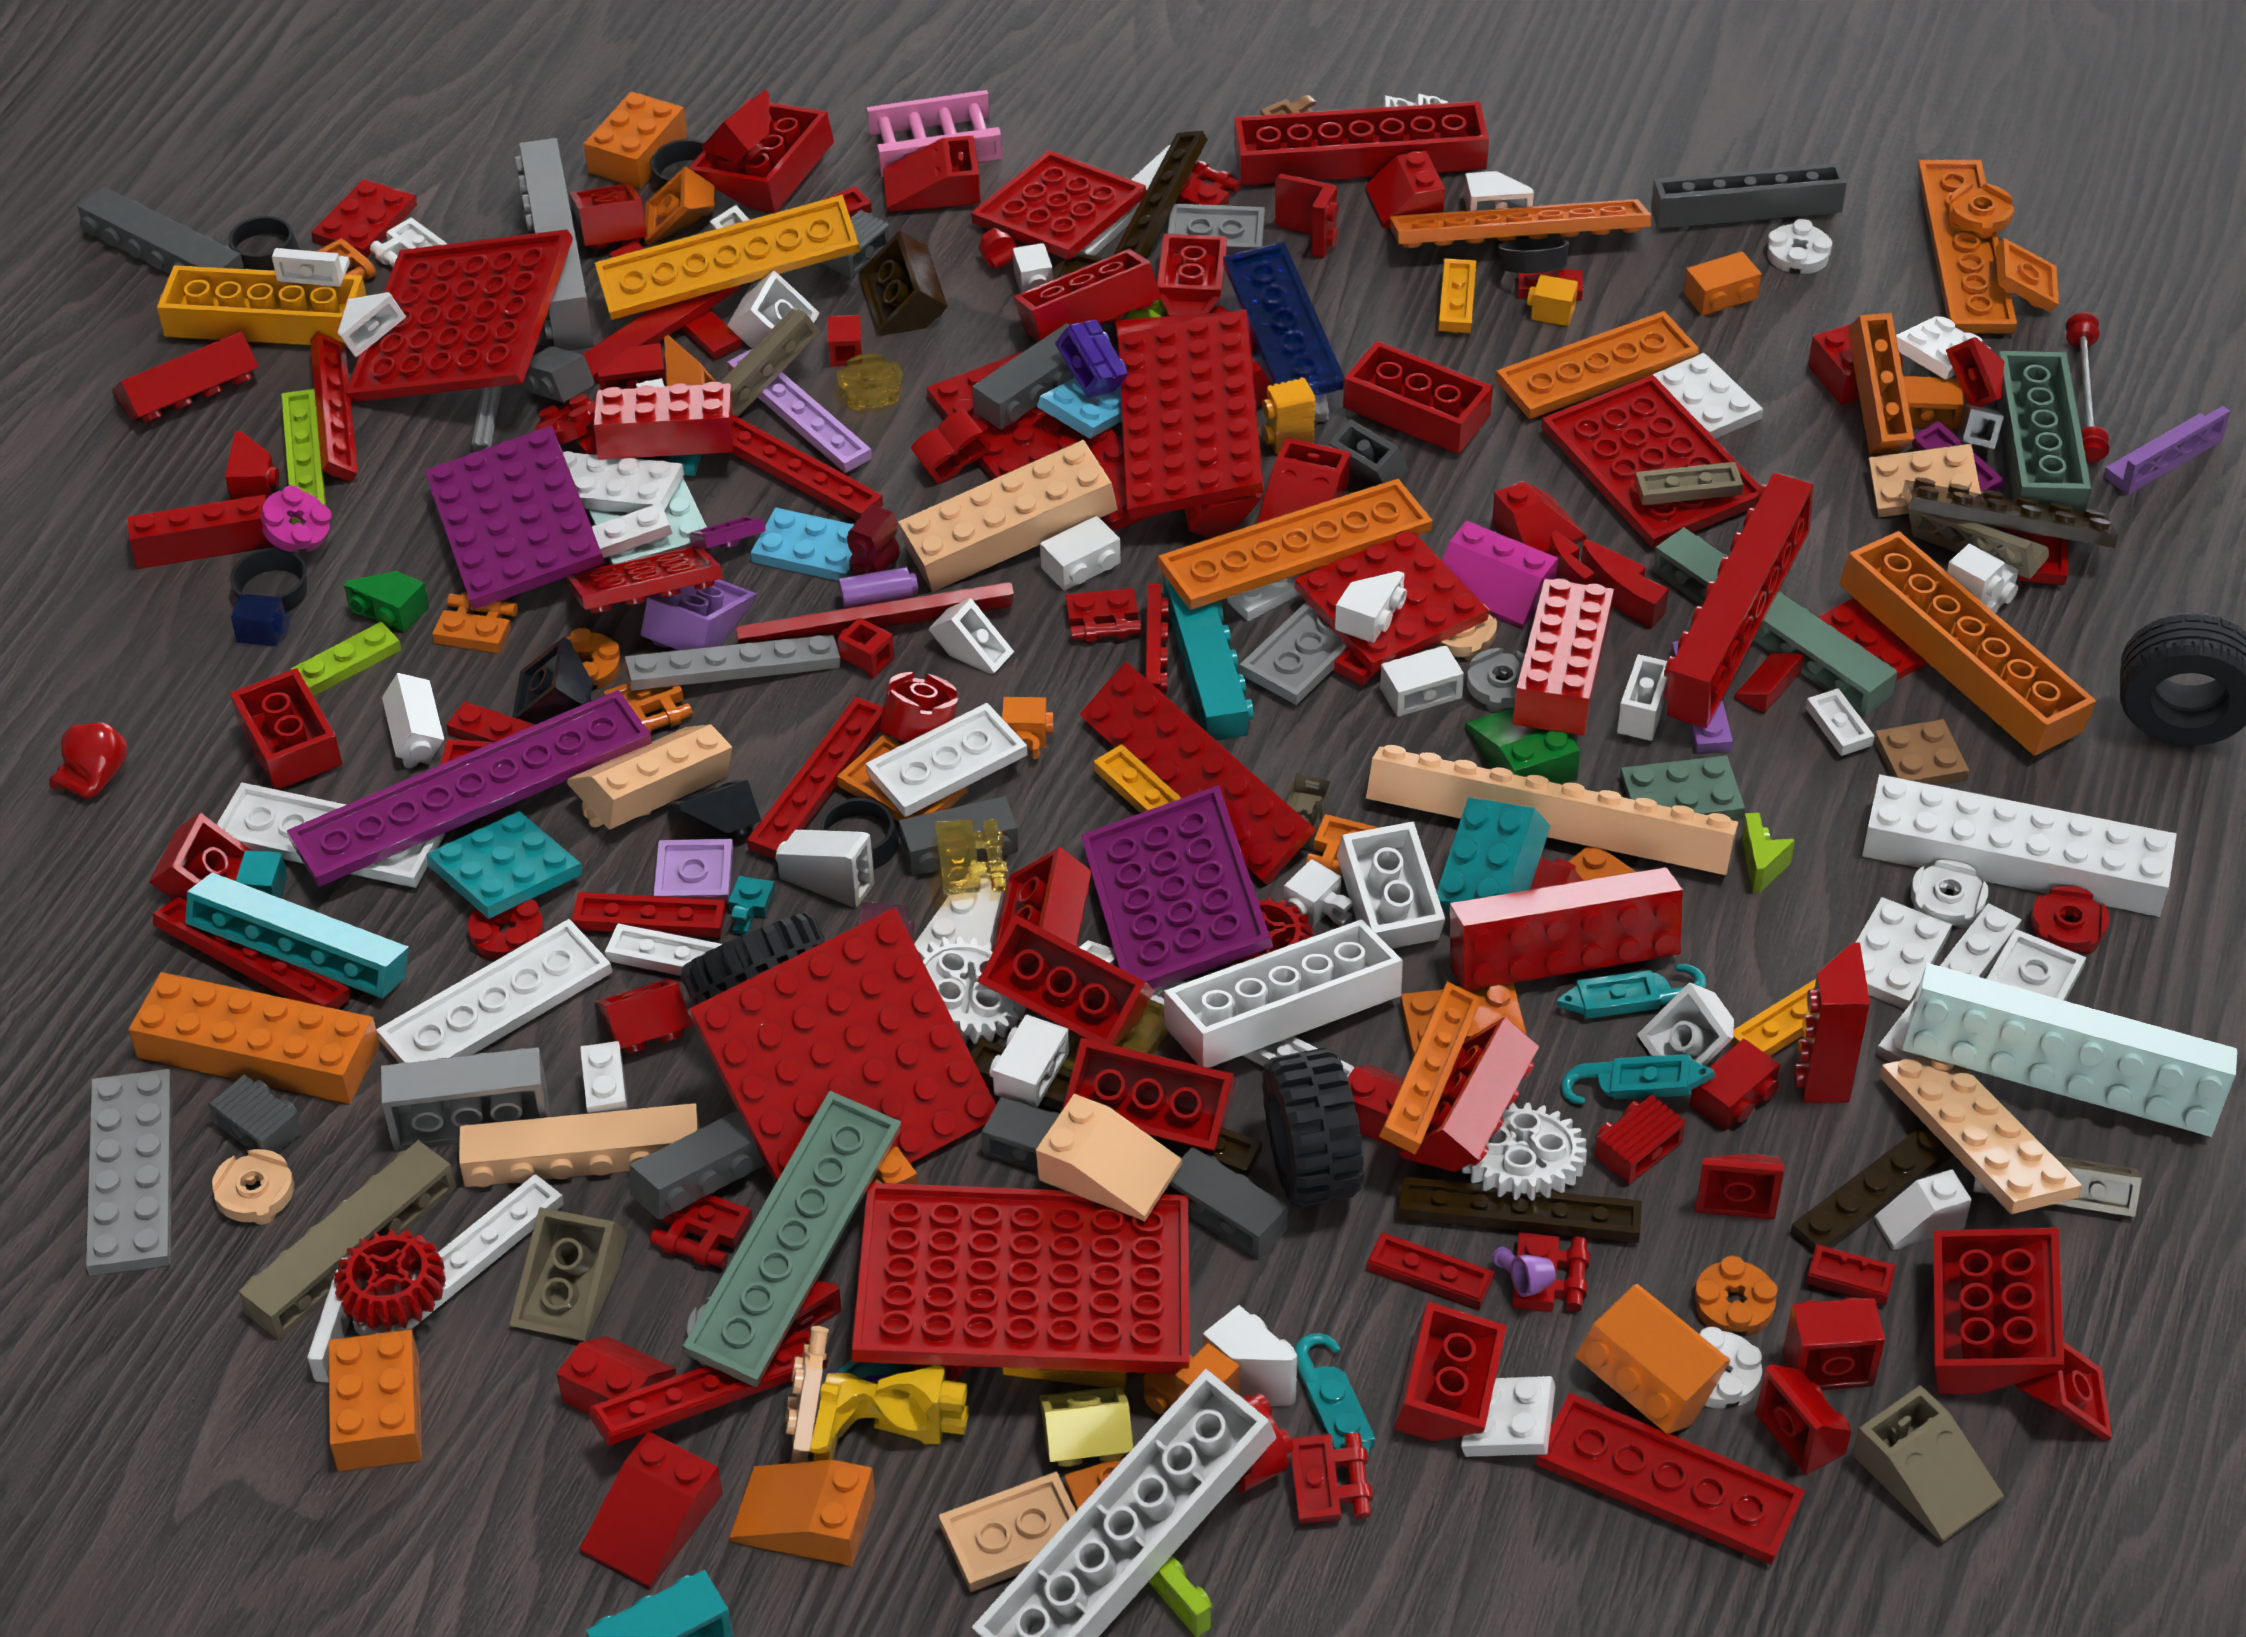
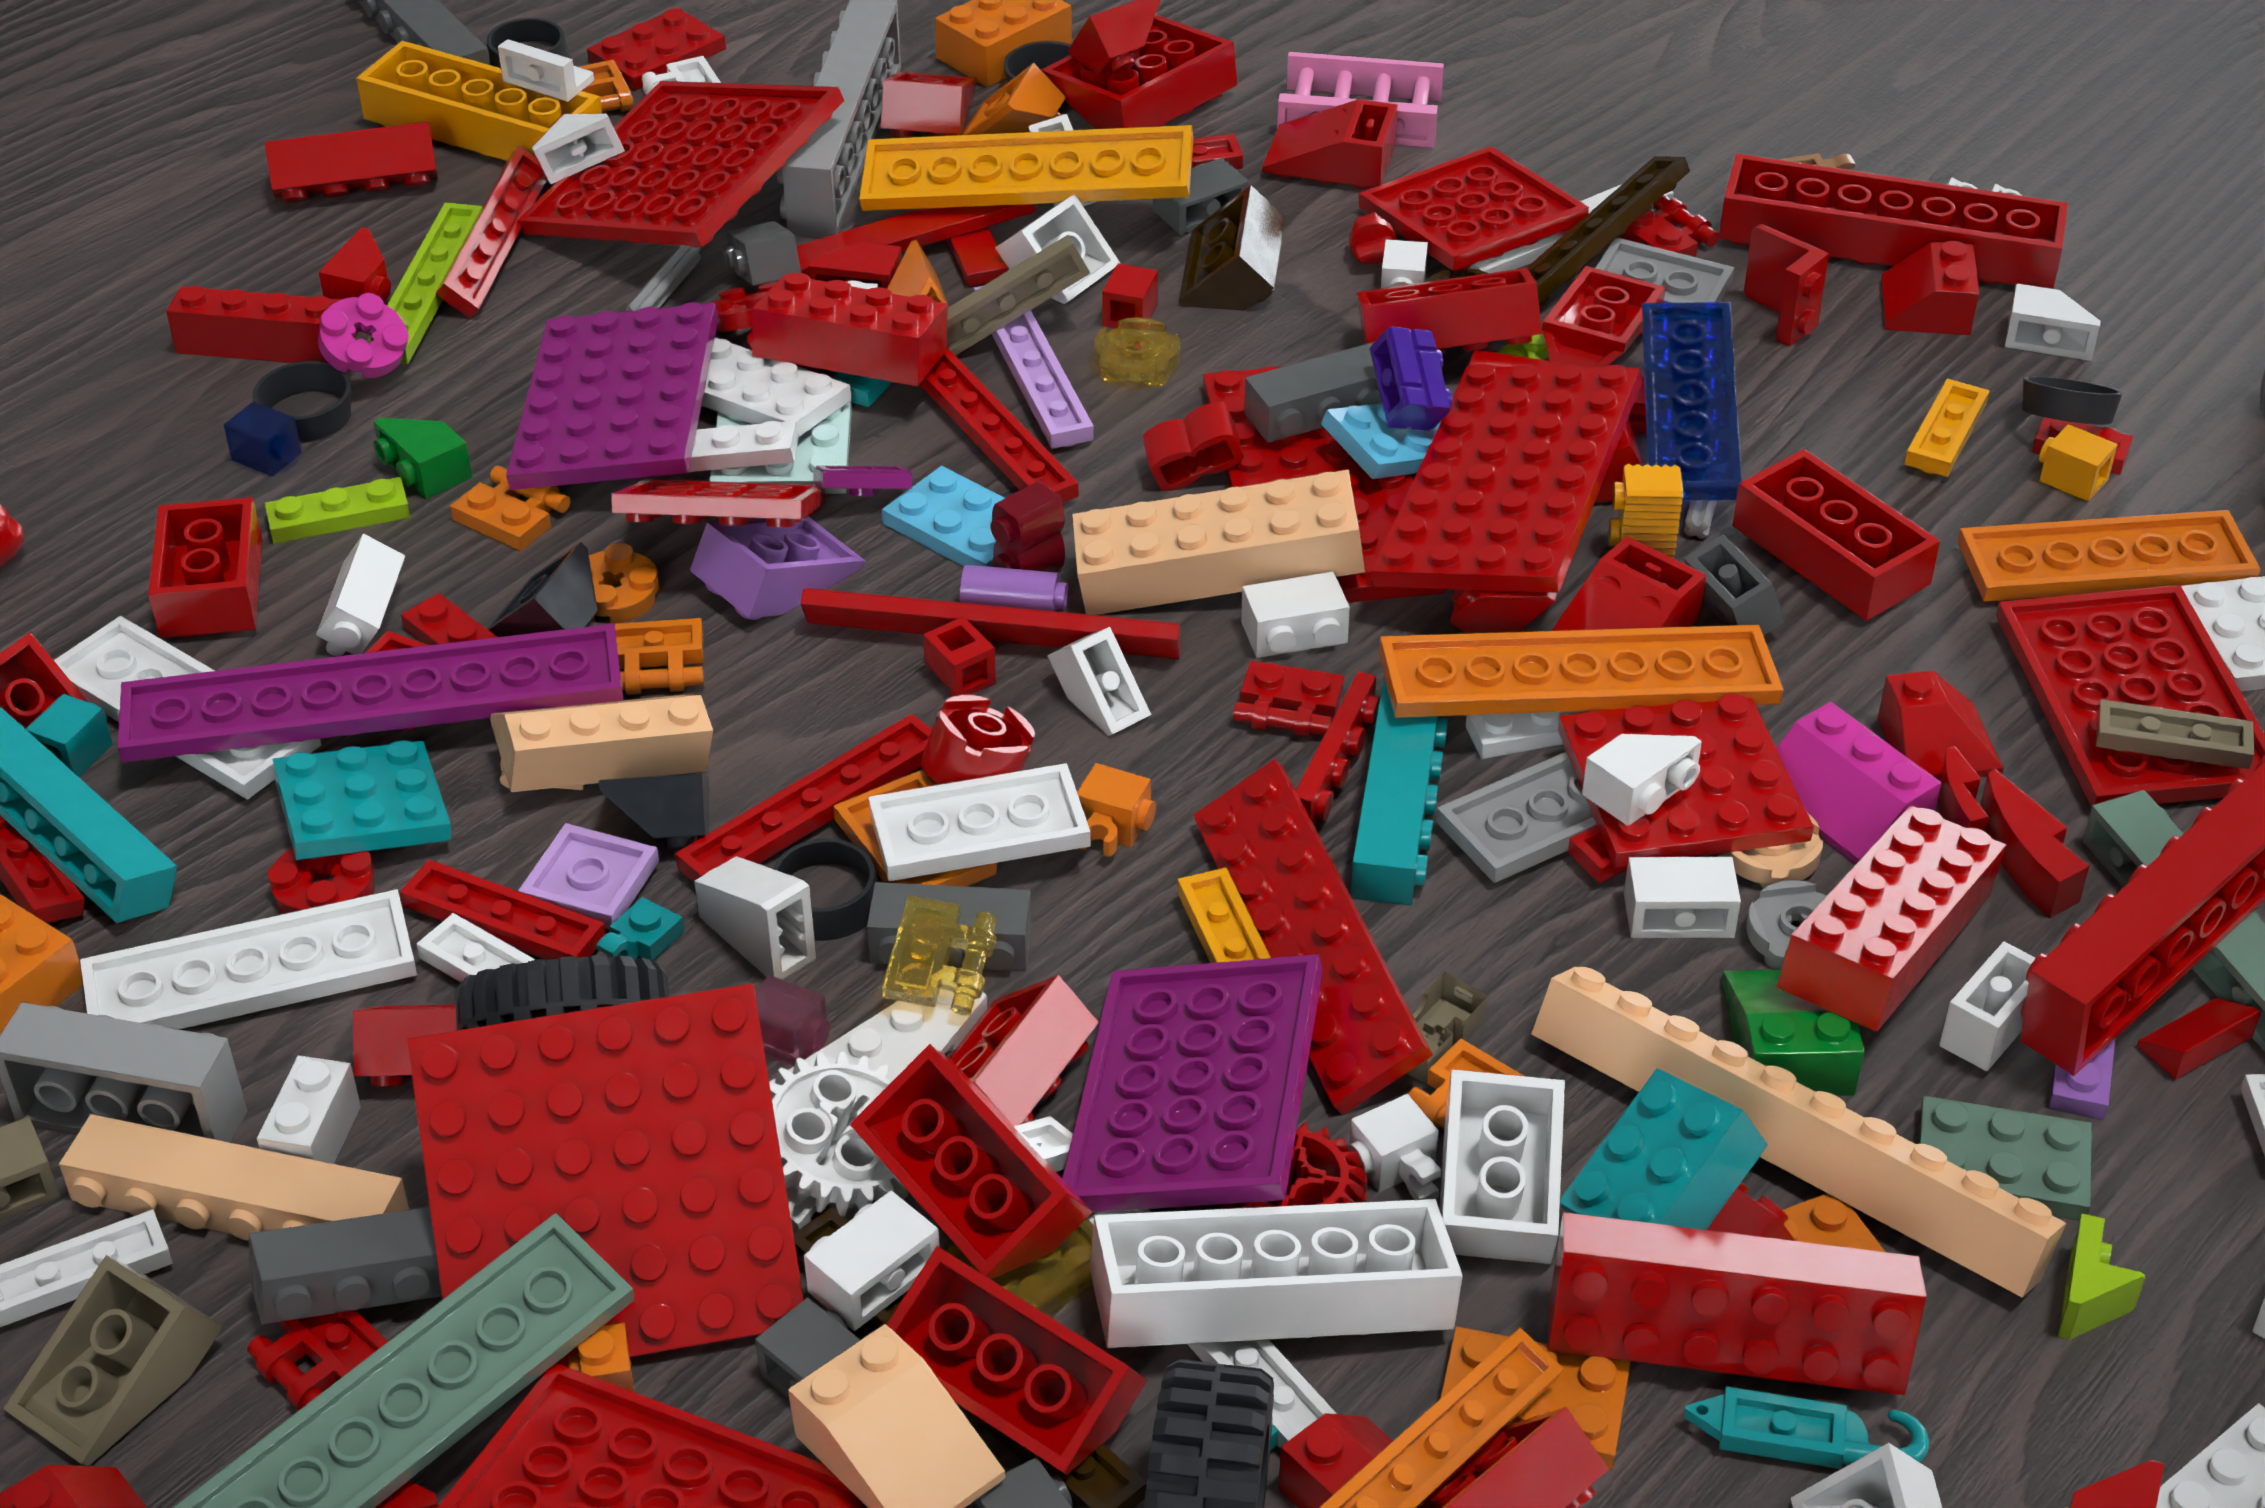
camera: 20 degrees right, 5 degrees down
(732, 662) = (781, 631): light grey plate -> none
(1519, 221) = (2085, 361): orange plate -> none

